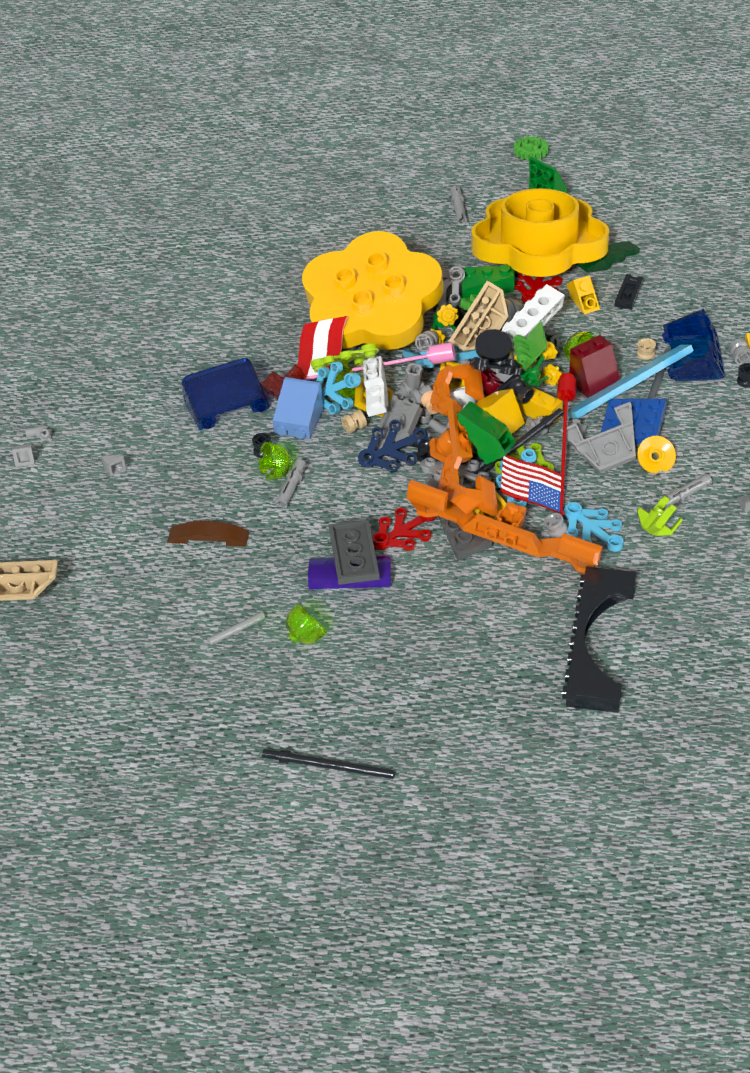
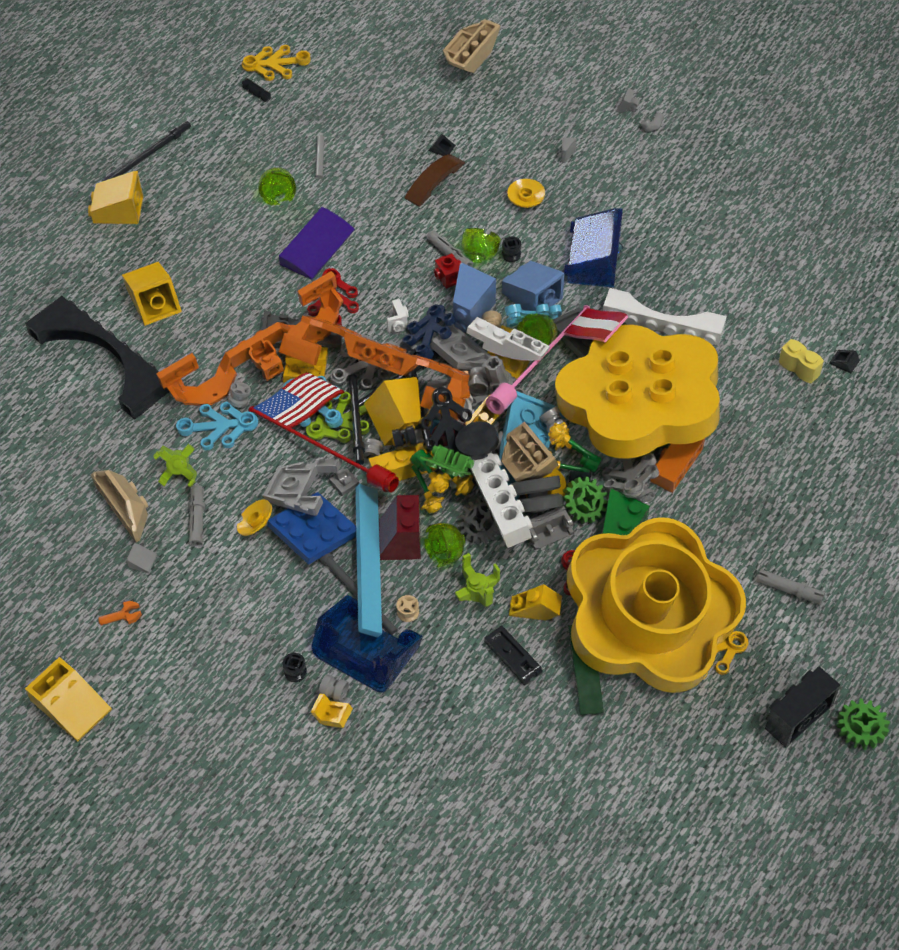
camera: 120 degrees right, 10 degrees up
(121, 736) = (255, 63): none -> yellow plant
(161, 552) = (442, 146): none -> black slope
(174, 727) = (256, 90): none -> black axle
(187, 465) = (526, 193): none -> yellow dish
(236, 247) = (845, 360): none -> black slope
(260, 259) = (803, 362): none -> light yellow brick
(264, 316) = (703, 325): none -> white arch
(274, 382) = (578, 292): clear red brick -> none
(318, 466) = (447, 270): none -> red brick
(344, 433) = (473, 296): none -> medium blue slope
(345, 357) = (544, 337): lime plant -> none
(353, 537) = (337, 249): dark grey hinge -> none
(392, 473) = (399, 321): none -> white bracket
(416, 730) = (117, 200): none -> yellow slope
(486, 432) = (364, 372): green slope -> none
(500, 641) = (152, 293): none -> yellow slope
(544, 176) = (751, 671): green slope -> none
(556, 156) = (801, 706): none -> black brick
(597, 321) = (478, 586): none -> lime piece
(718, 532) = (123, 500): none -> tan wedge

